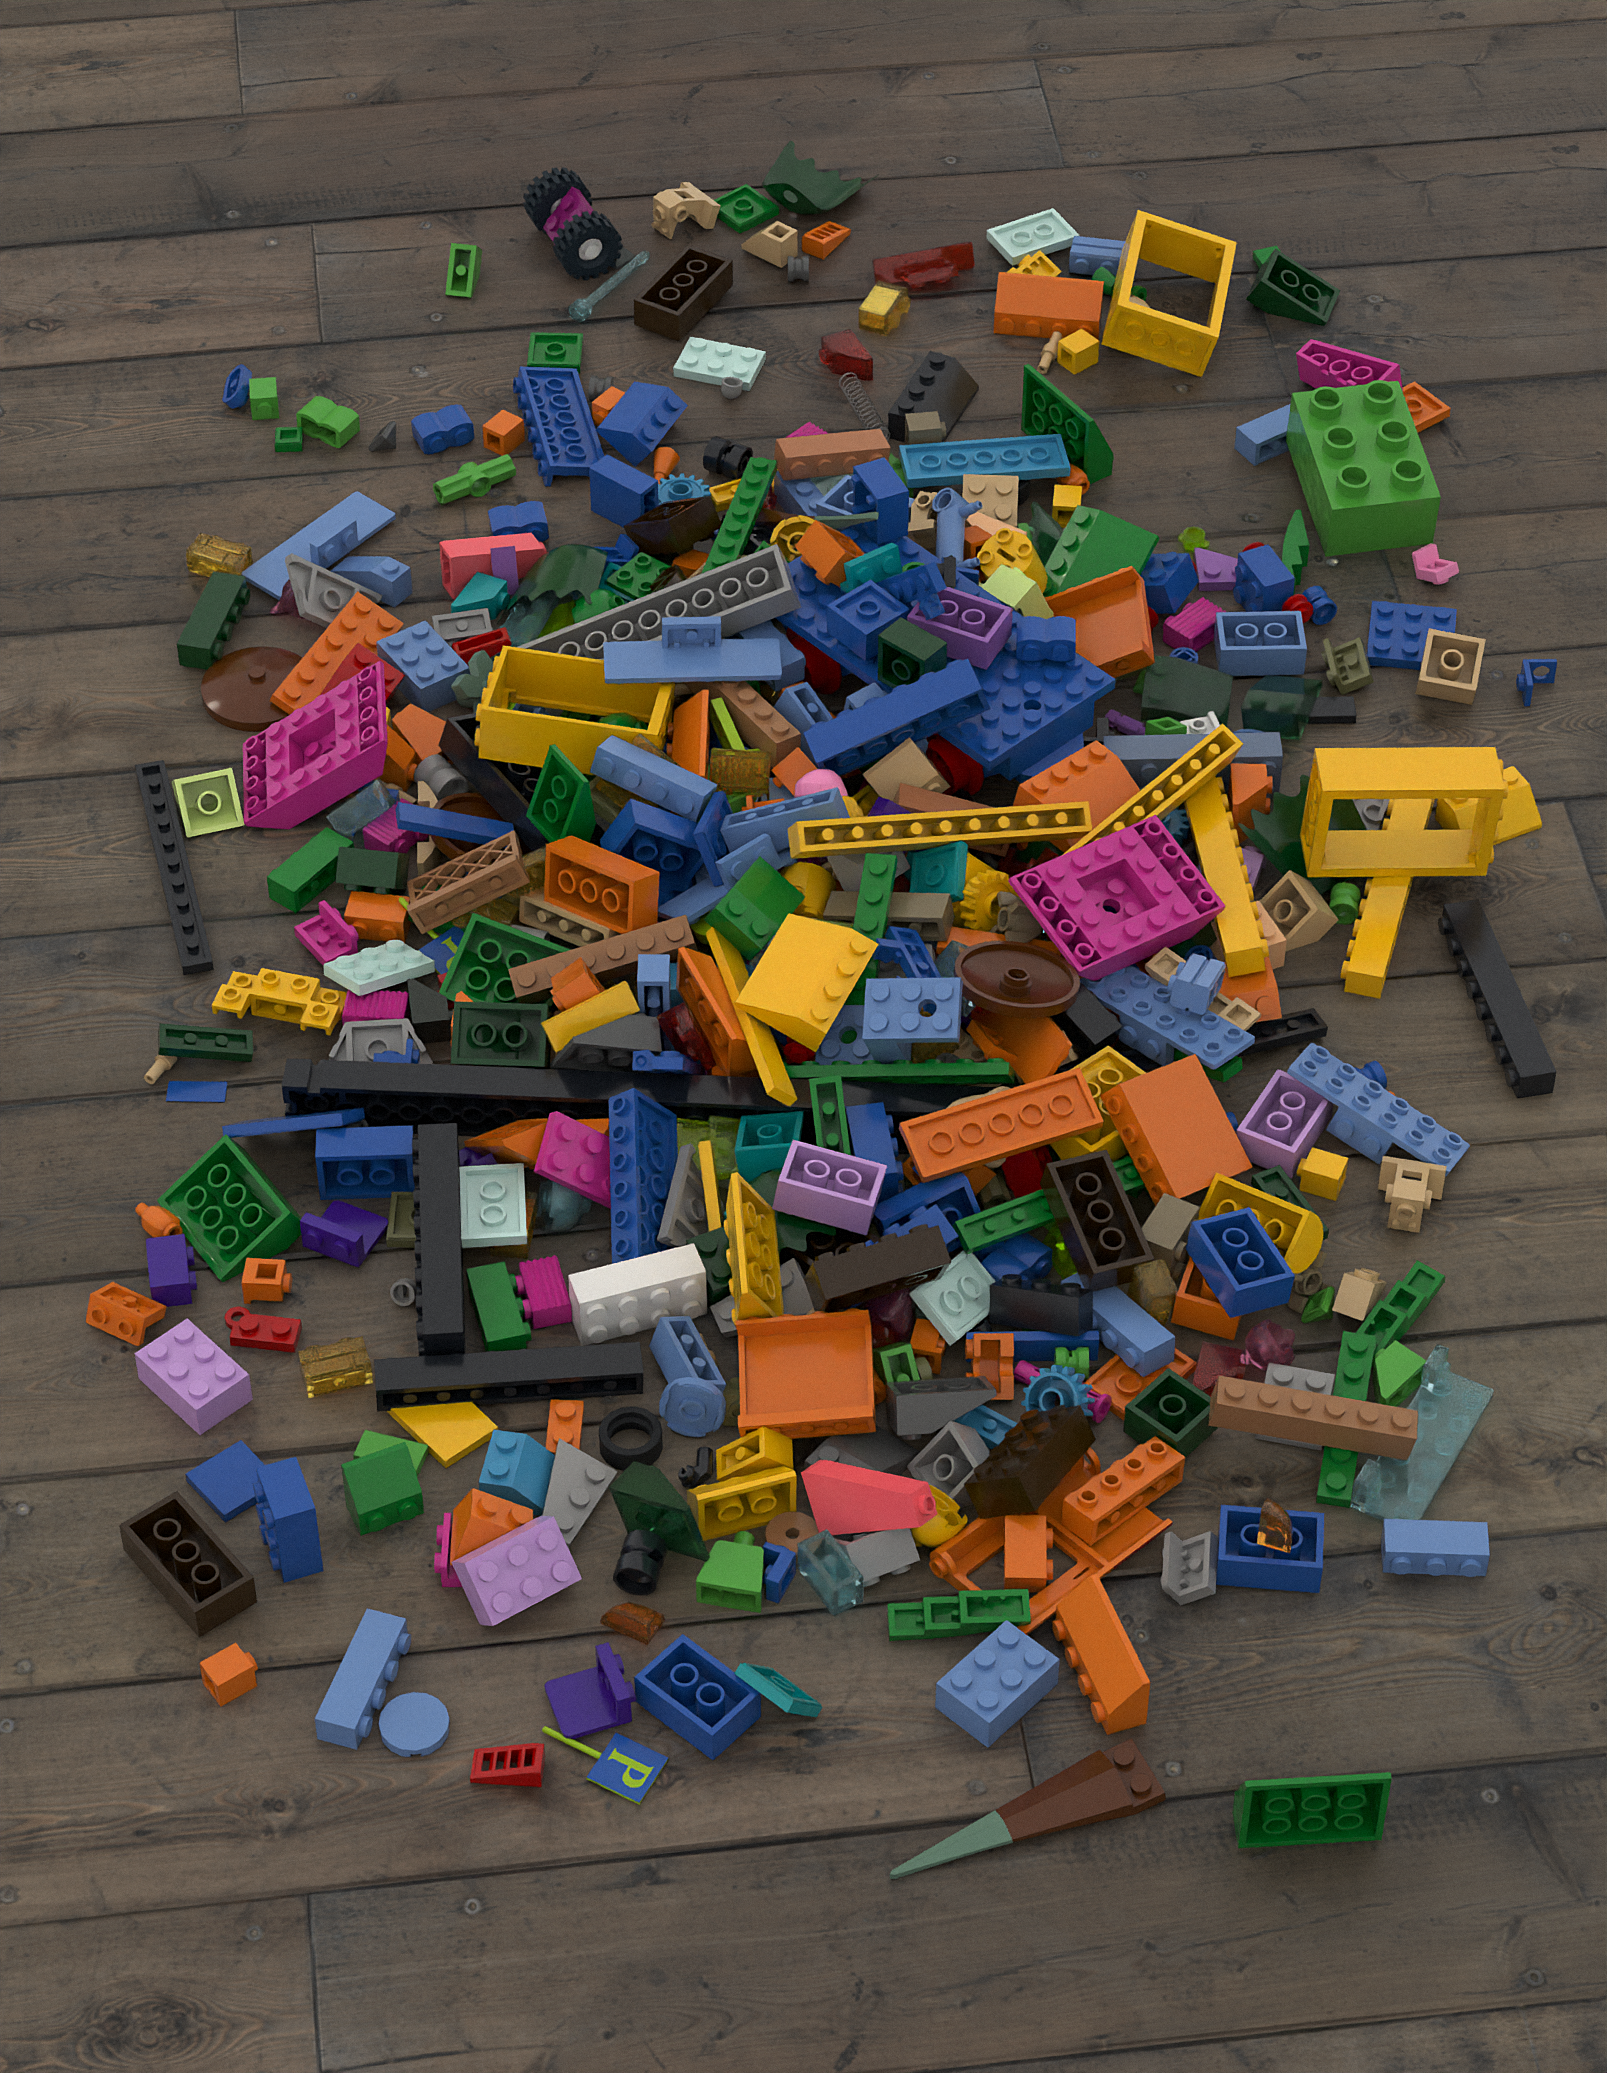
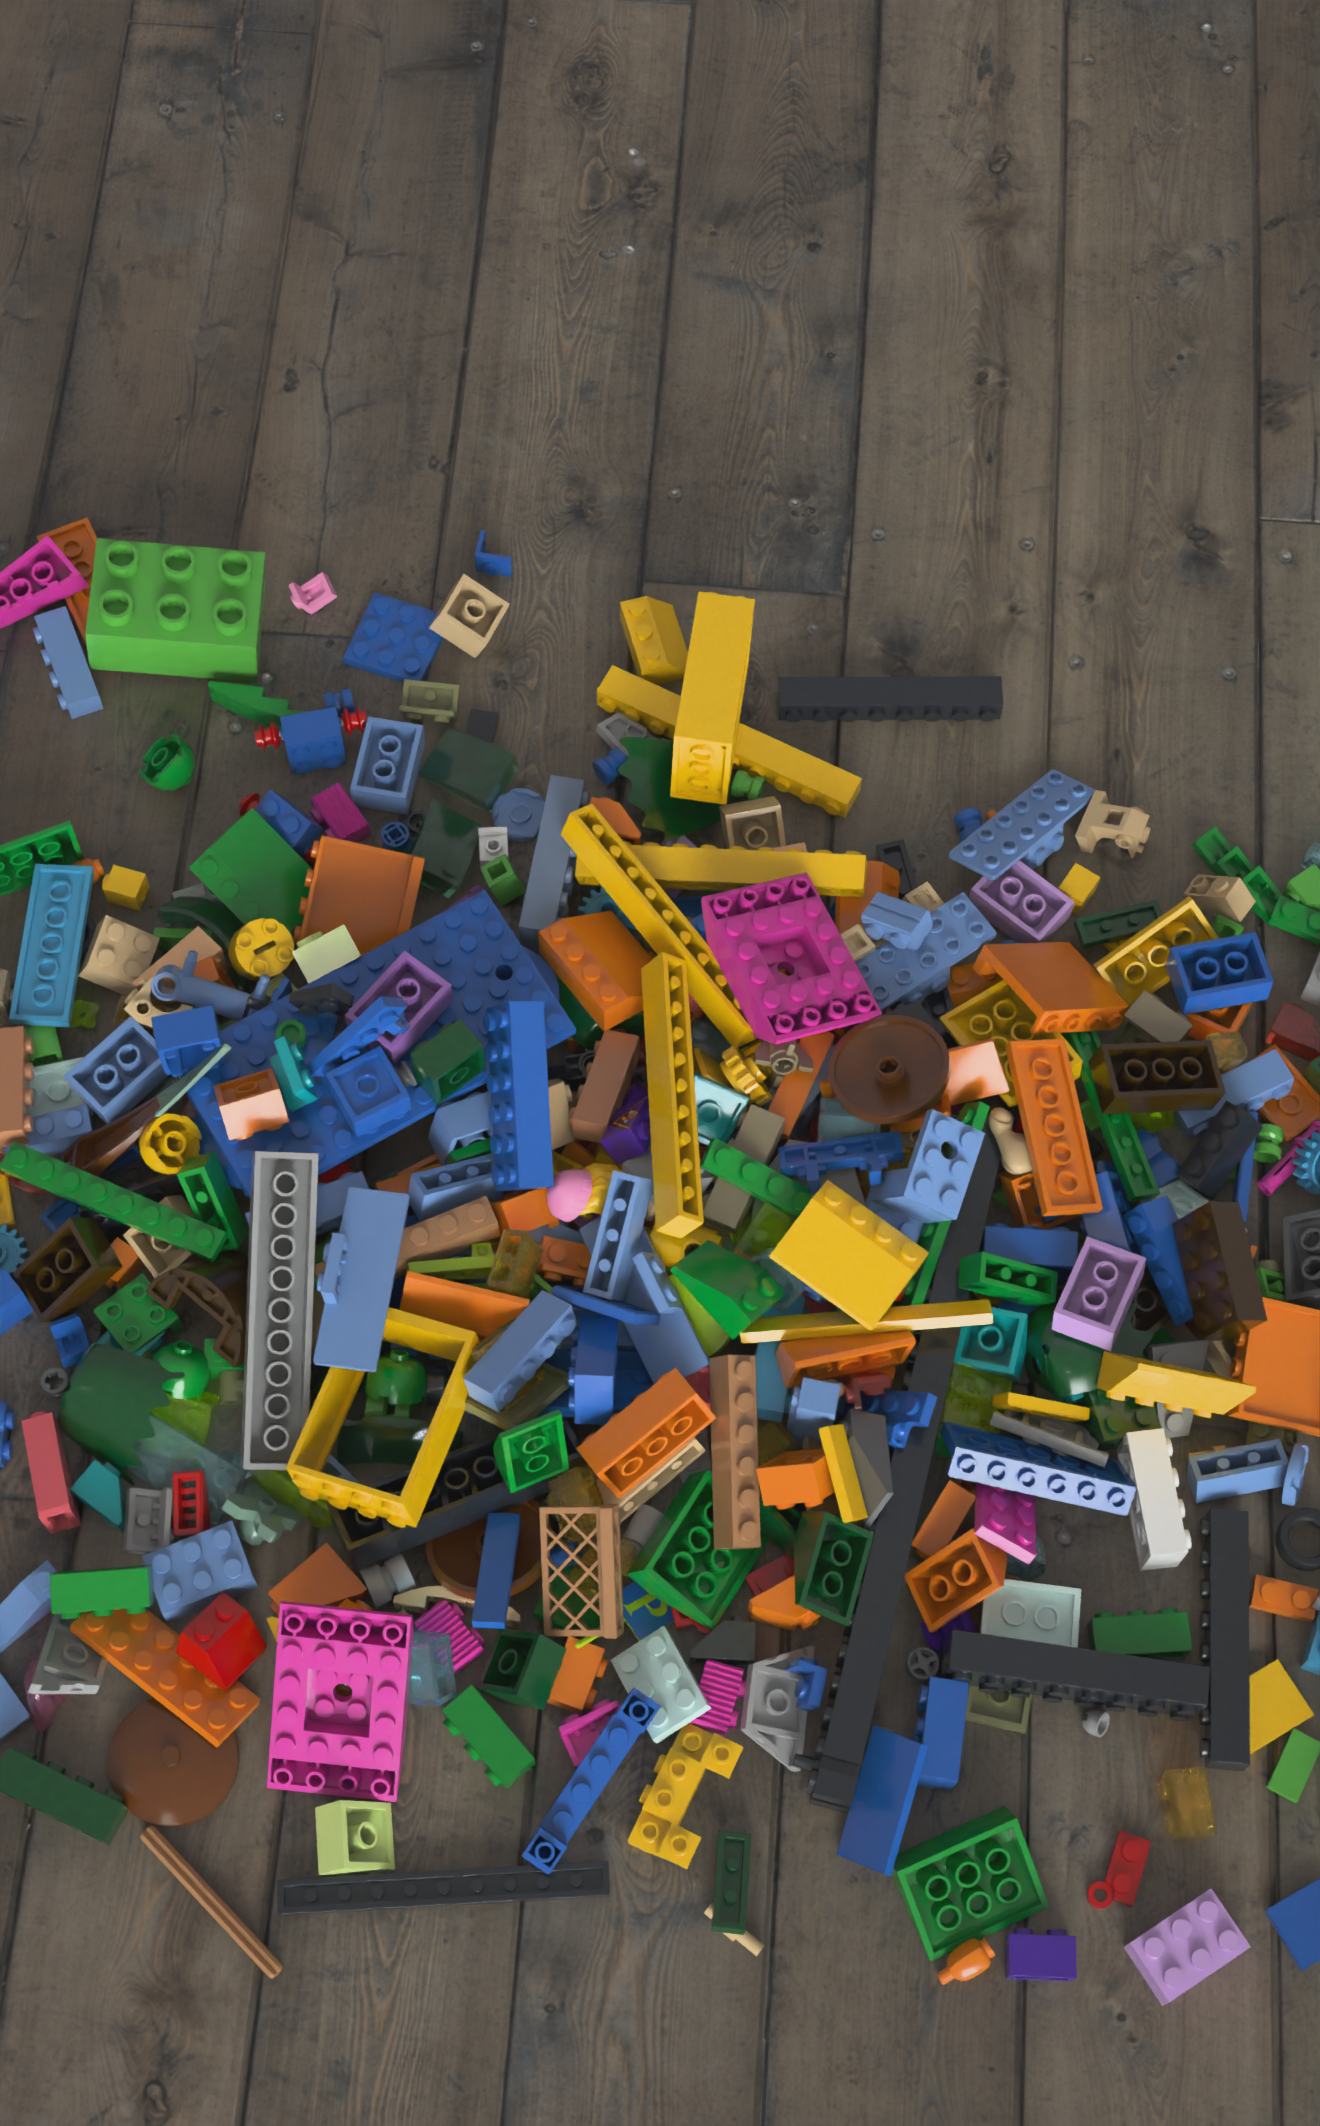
camera: 80 degrees left, 20 degrees up
(123, 1312) = (1085, 2009): orange bracket -> none
(141, 731) = (211, 1902): none -> medium nougat axle
(196, 1091) = (779, 1902): blue sticker -> none
(265, 1280) = (1079, 1849): orange brick -> none
(272, 934) = (589, 1780): none -> blue slope
(343, 1232) = (1012, 1771): dark purple bracket -> none
(385, 594) = (101, 1591): none -> green brick
(505, 566) = (74, 1458): medium lavender sticker -> none
(544, 1292) = (1121, 1588): dark pink brick -> none
(993, 1357) = (1267, 1209): orange cylinder -> none
(1046, 638) = (431, 933): blue brick -> none
(1193, 538) = (203, 781): clear neon green plate -> none
(1201, 505) = (168, 764): none -> green cylinder
(1214, 570) = (257, 773): medium lavender wing -> none
(1268, 1344) = (1287, 983): clear pink hair -> none

